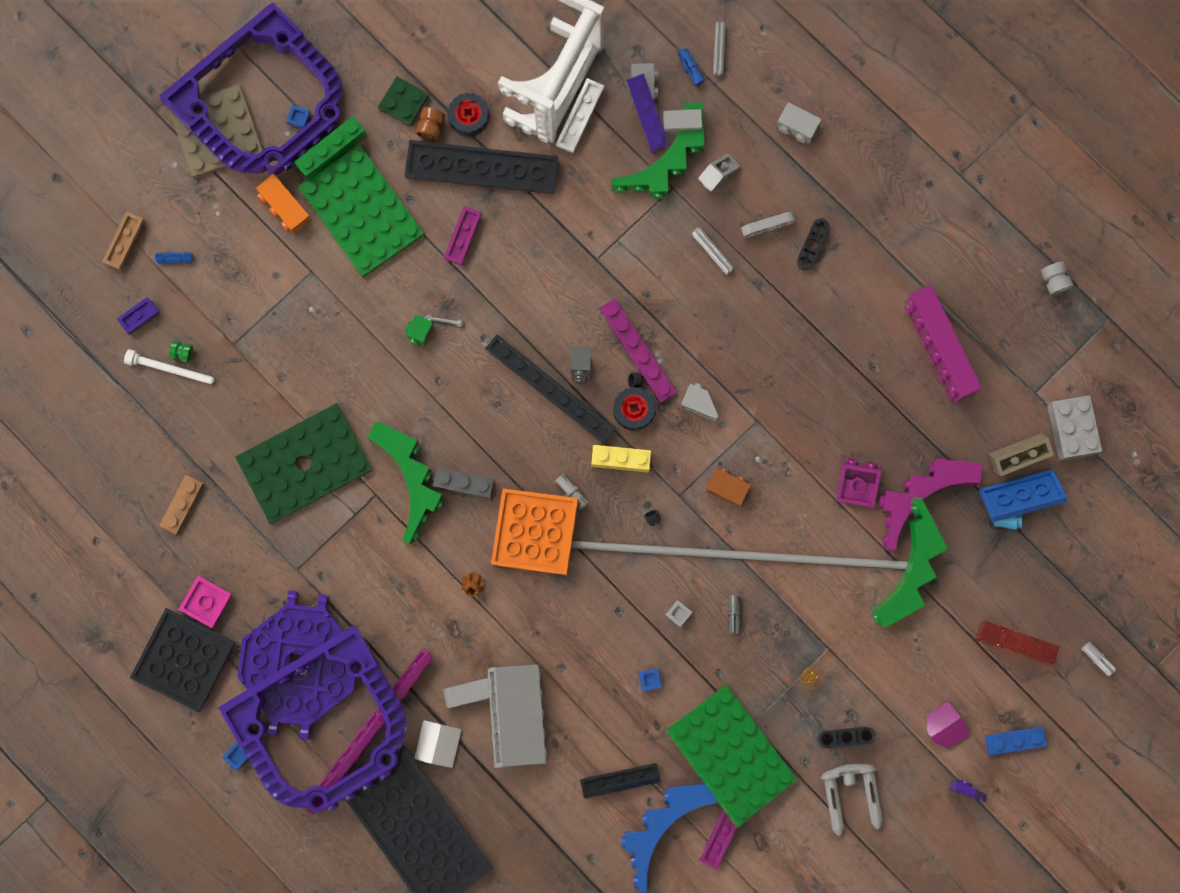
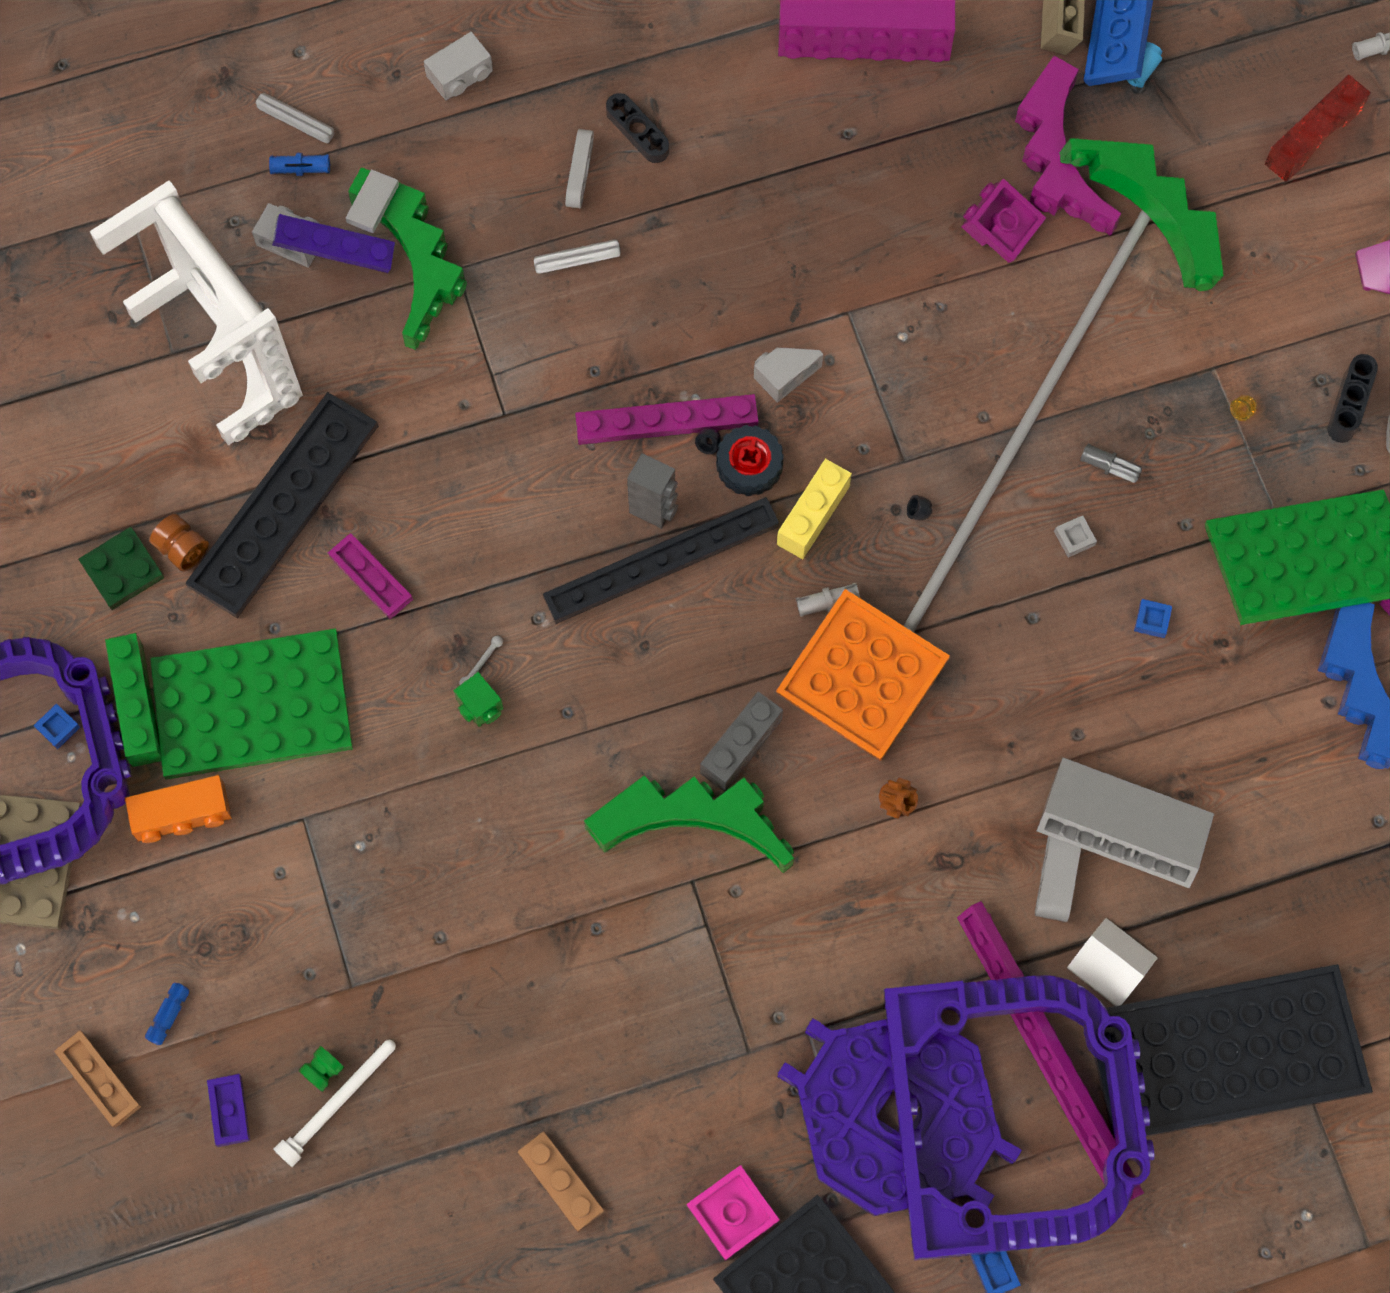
camera: 65 degrees left, 10 degrees down
(333, 456) = (601, 1014): dark green plate -> none
(468, 114) = (195, 485): black wheel -> none
(580, 115) = (305, 360): white plate -> none
(620, 780) = (1283, 725): black plate -> none
(718, 172) = (471, 197): light grey slope -> none
(728, 487) = (925, 388): dark orange brick -> none

